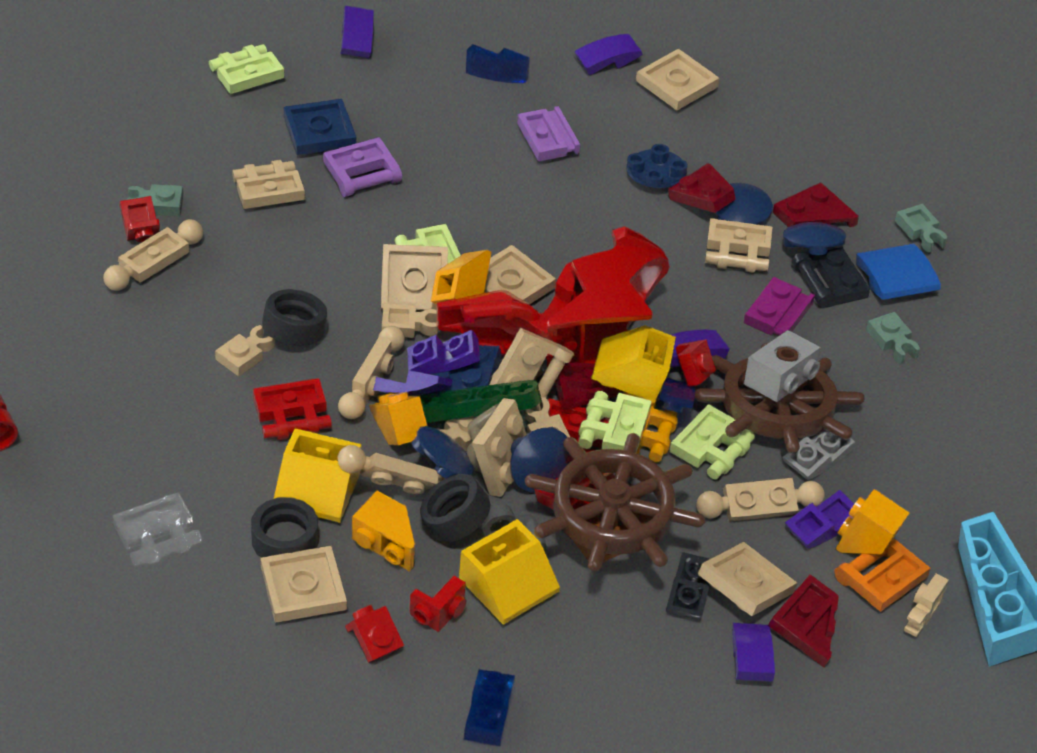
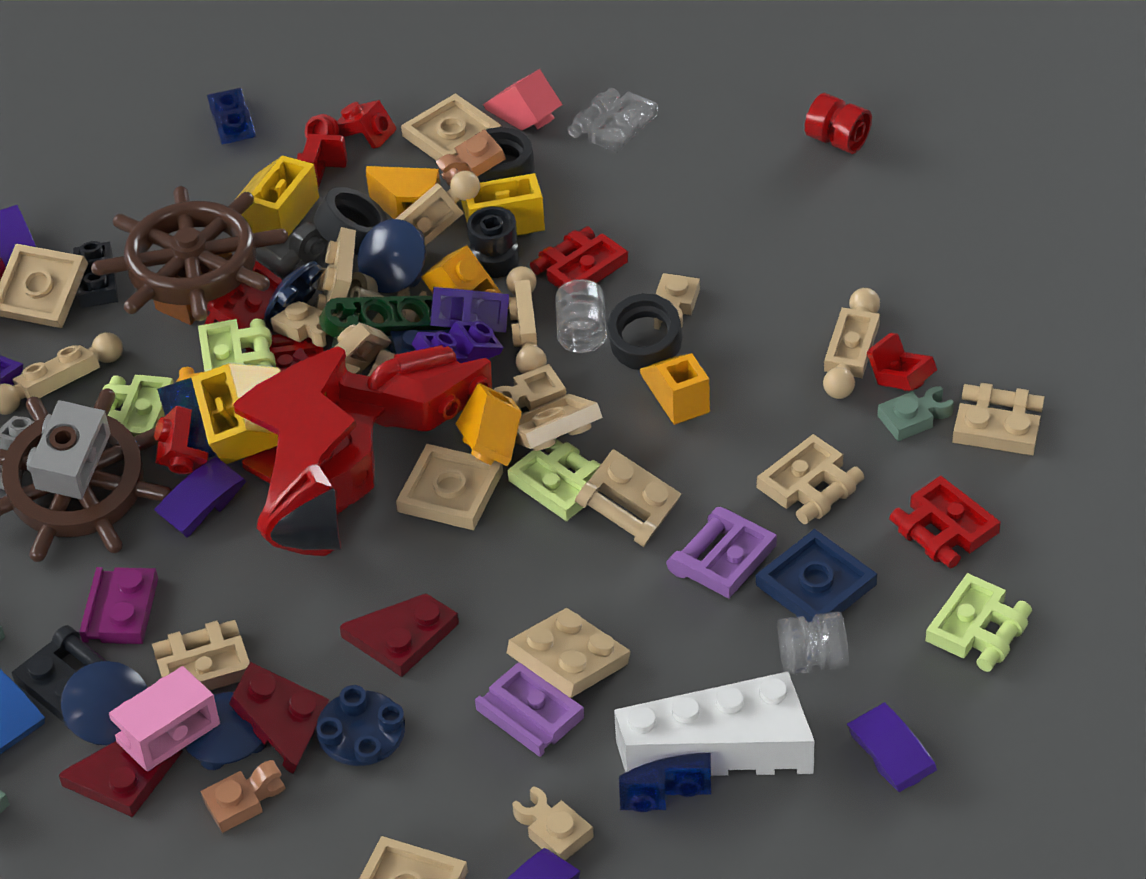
camera: 160 degrees right, 0 degrees up
(113, 165) = (998, 428): none -> tan plate
(201, 126) = (951, 512): none -> red plate
(223, 580) = (526, 102): none -> coral slope
(305, 262) = (679, 387): none -> light orange slope
(313, 512) = (473, 155): none -> nougat plate
(331, 350) = (580, 316): none -> clear wheel
(354, 426) = (494, 240): none -> black wheel
(358, 88) = (813, 643): none -> clear wheel
(390, 219) = (632, 489): none -> tan plate
(418, 638) = (322, 124): none -> red plate
(450, 71) = (741, 725): none -> white wedge
(504, 148) = (568, 652): none -> tan plate
(572, 79) = (553, 828): none -> tan plate
(596, 212) = (401, 632): none -> dark red wing
(751, 165) = (239, 799): none -> nougat plate
(782, 192) = (165, 718): none -> bright pink brick

